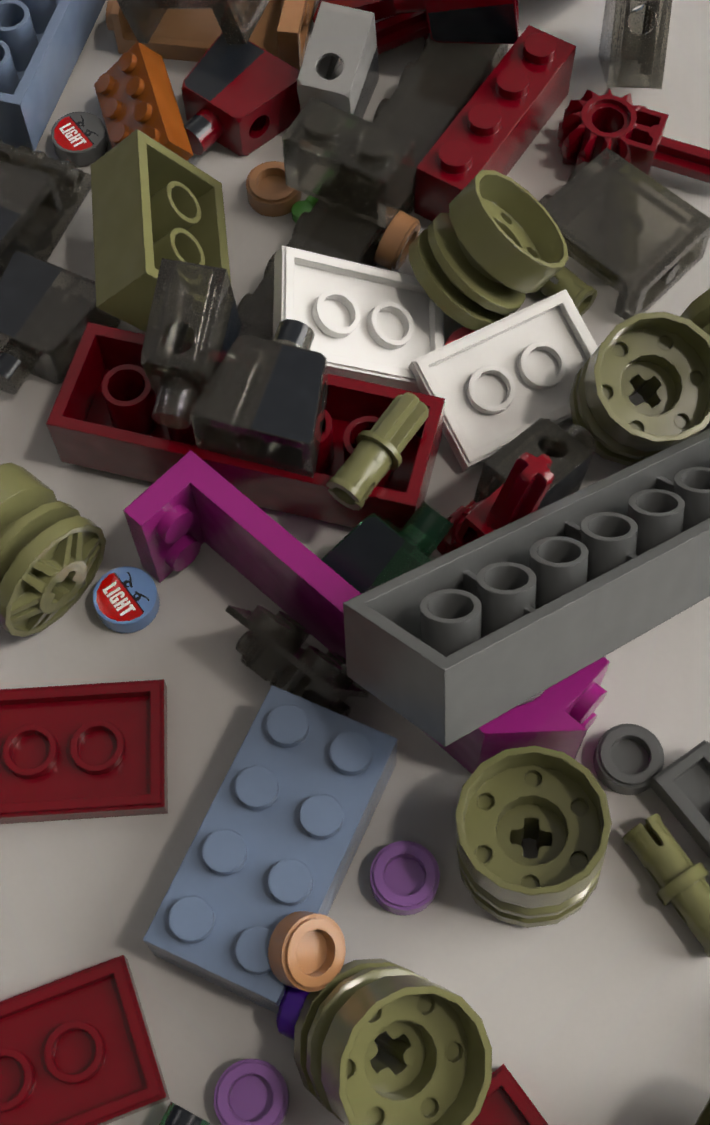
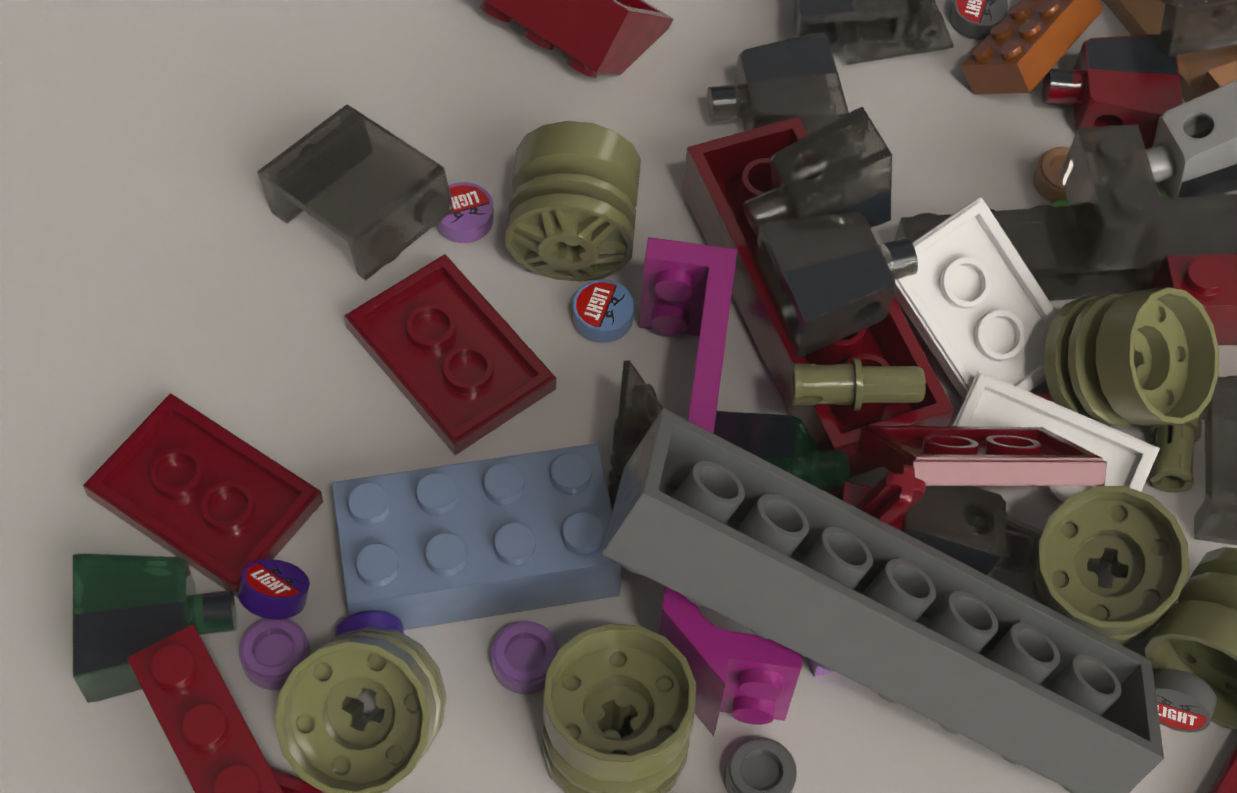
camera: 50 degrees right, 5 degrees down
(146, 210) = (936, 109): olive brick -> none
(193, 1061) = (273, 589): none -> dark purple tile
(306, 951) = (400, 598): medium nougat tile -> none
(396, 240) = (1092, 284): medium nougat tile -> none
(509, 407) = (984, 455): none -> dark red tile

